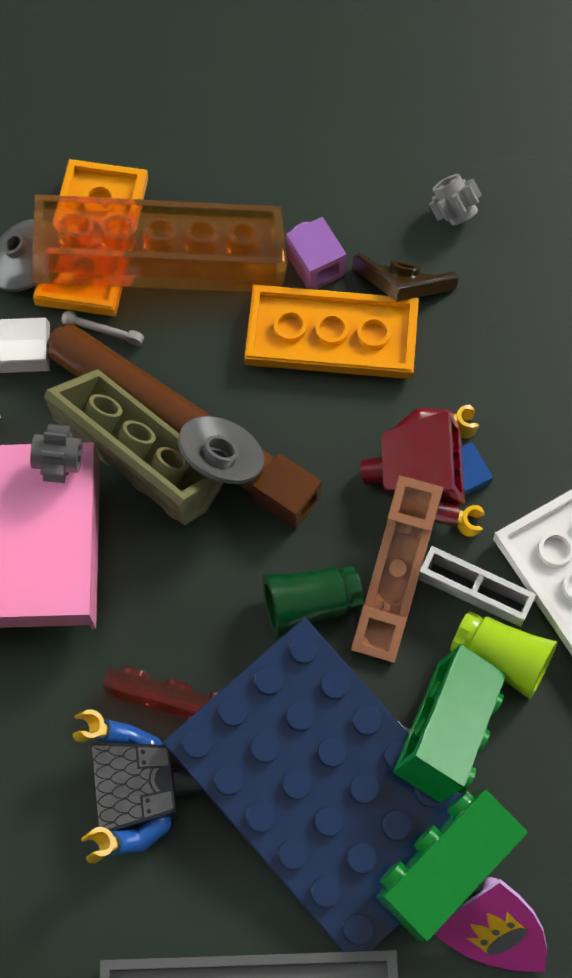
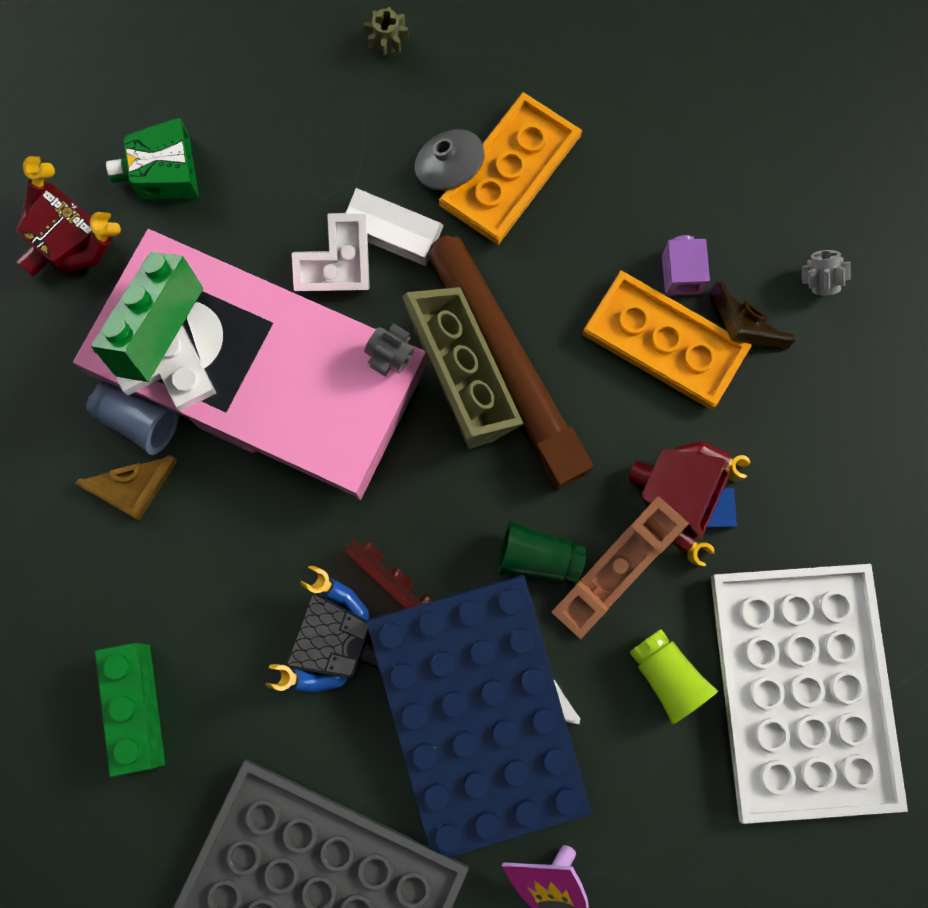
camera: 25 degrees right, 10 degrees up
(132, 337) = (462, 231): light grey hinge -> none
(157, 244) = (560, 199): clear orange arch -> none
(220, 450) = (523, 405): dark grey dish -> none
(450, 863) = (542, 828): green brick -> none
(451, 725) = (598, 717): brick -> none
(481, 578) = (684, 605): white piece -> none

